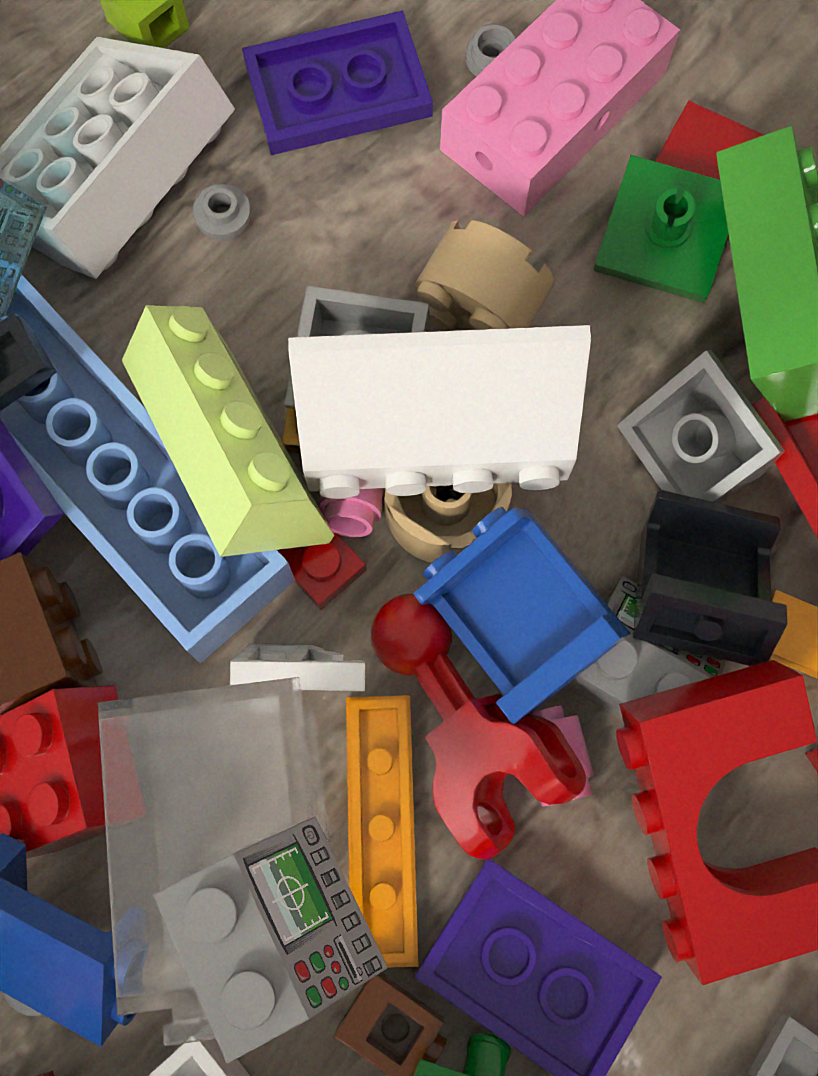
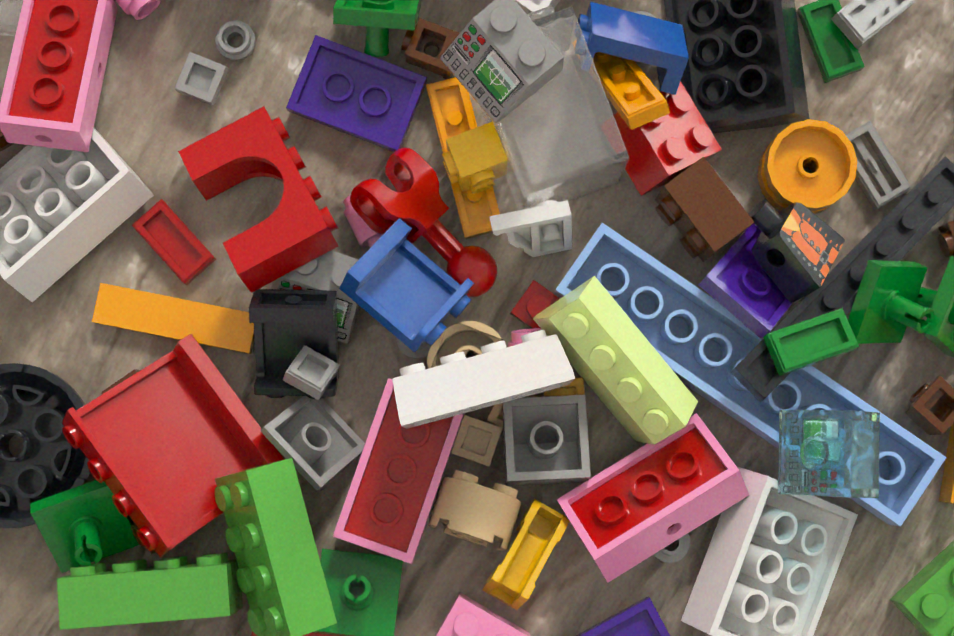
camera: 170 degrees right, 10 degrees up
(66, 841) = (629, 90): none -> light orange tile
(230, 245) = (653, 498): none -> brick
(364, 798) = (475, 158): none -> yellow brick
(413, 222) = (536, 537): none -> yellow piece
(630, 317) = (396, 481): none -> red brick
(690, 527) = (311, 372): none -> light grey tile

